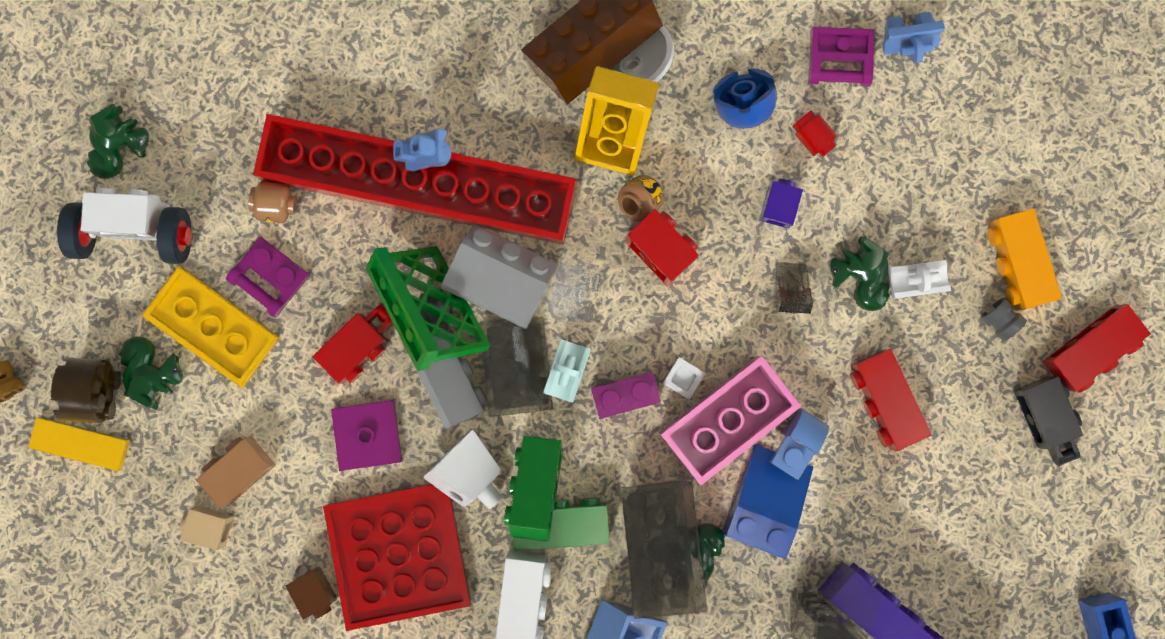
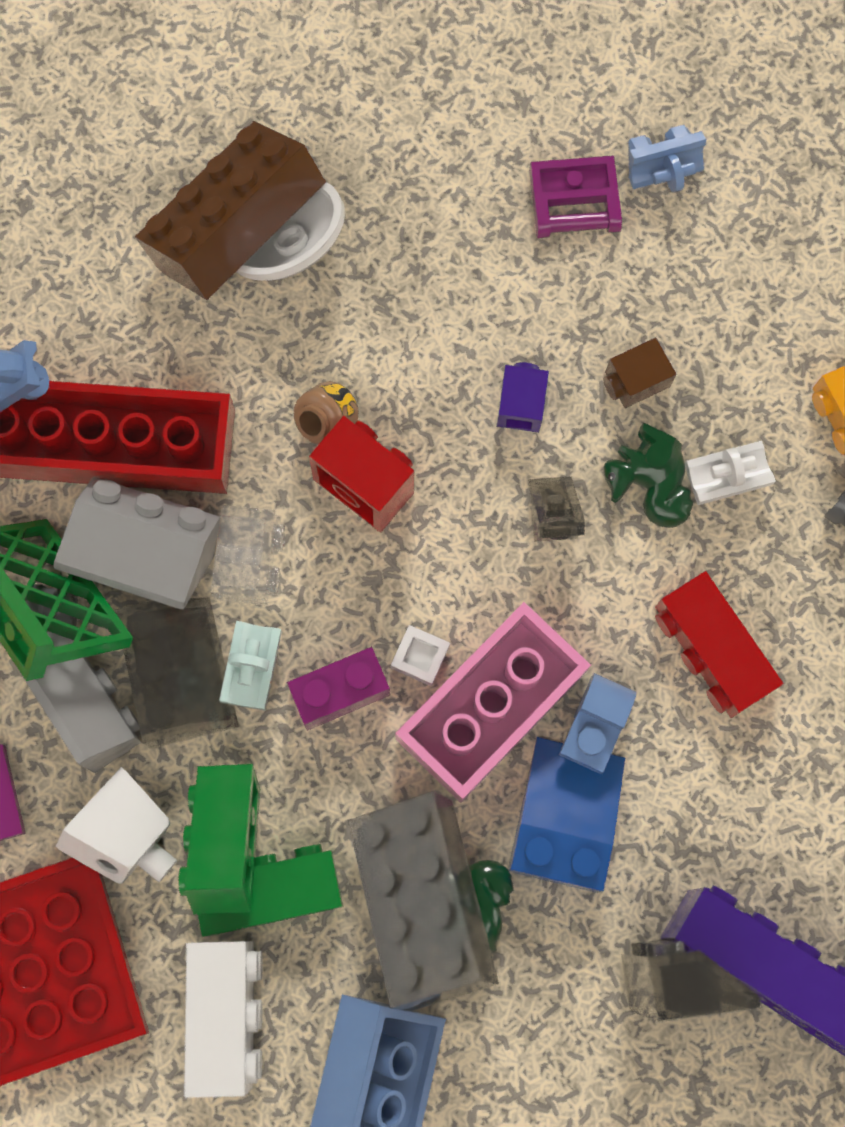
camera: 15 degrees left, 10 degrees down
(615, 120) = (274, 309): yellow brick -> none
(745, 99) = (453, 266): blue cylinder -> none
(815, 134) = (555, 299): red brick -> none
(866, 197) = (638, 373): none -> reddish brown brick

